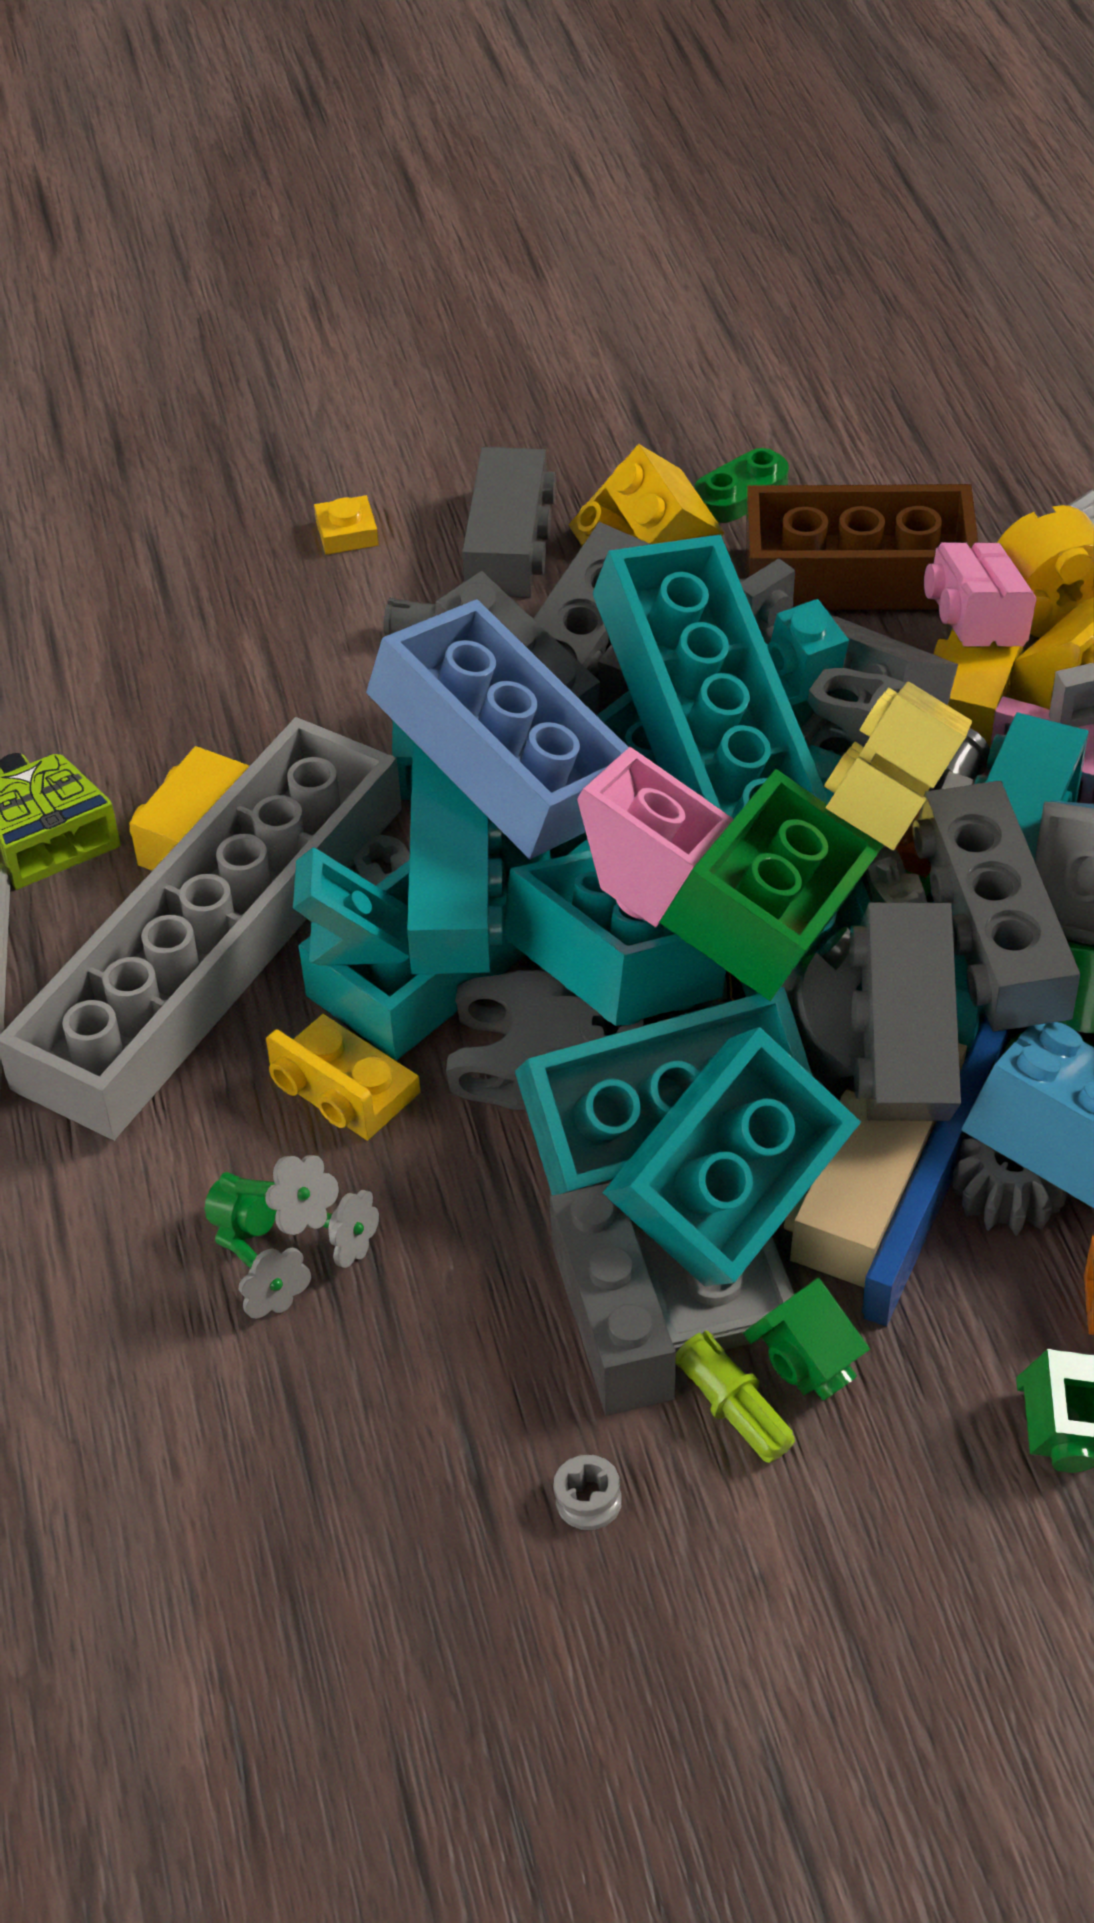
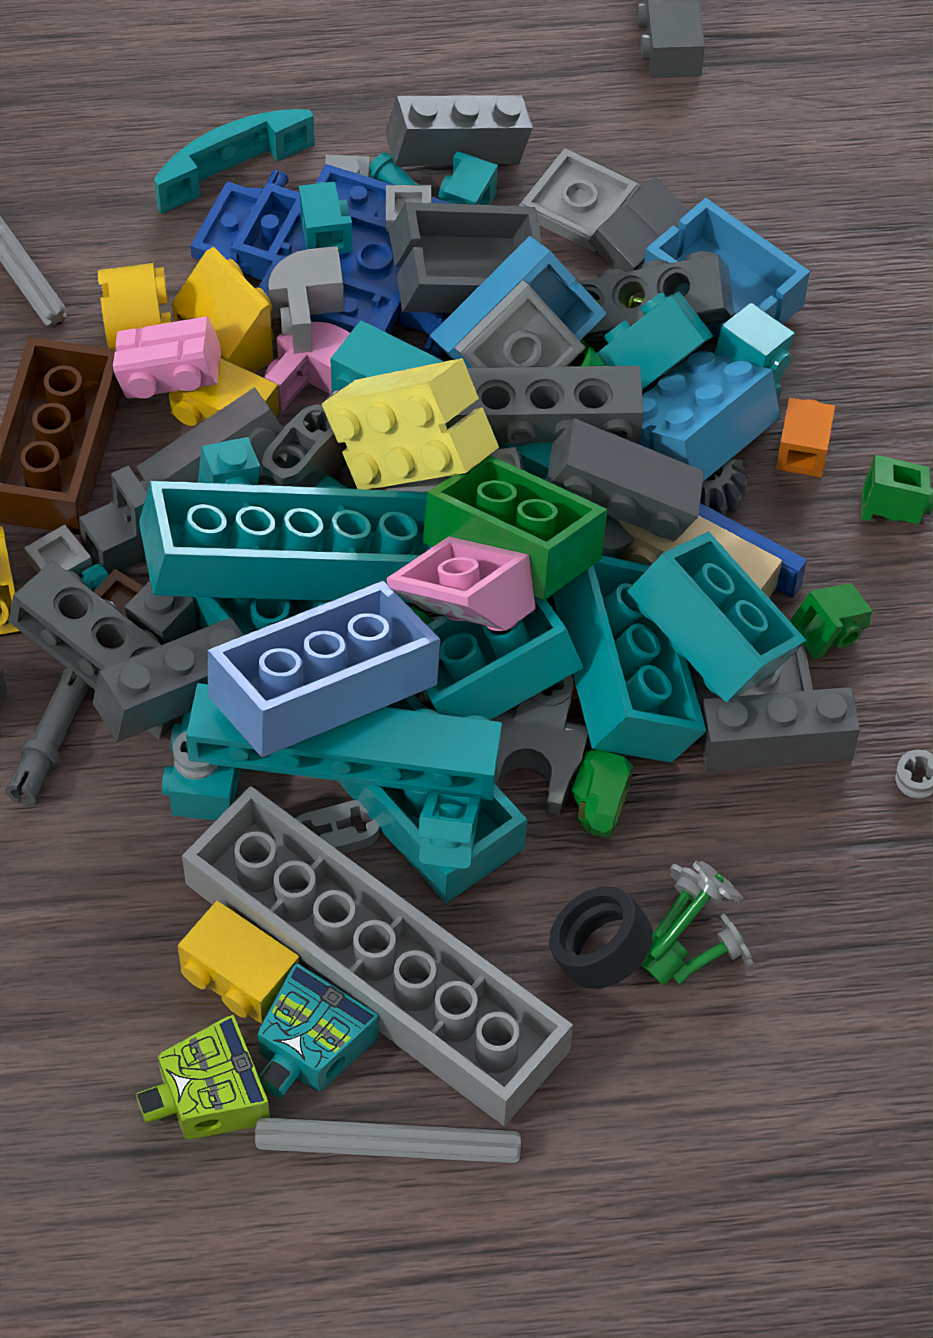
camera: 85 degrees left, 10 degrees up
(95, 877) = (312, 1033): none -> teal torso
(249, 1125) = (619, 956): none -> black tyre
(341, 1076) = (535, 884): yellow bracket -> none
(474, 1120) = (601, 791): none -> green rock
(734, 1396) = (865, 672): lime axle -> none

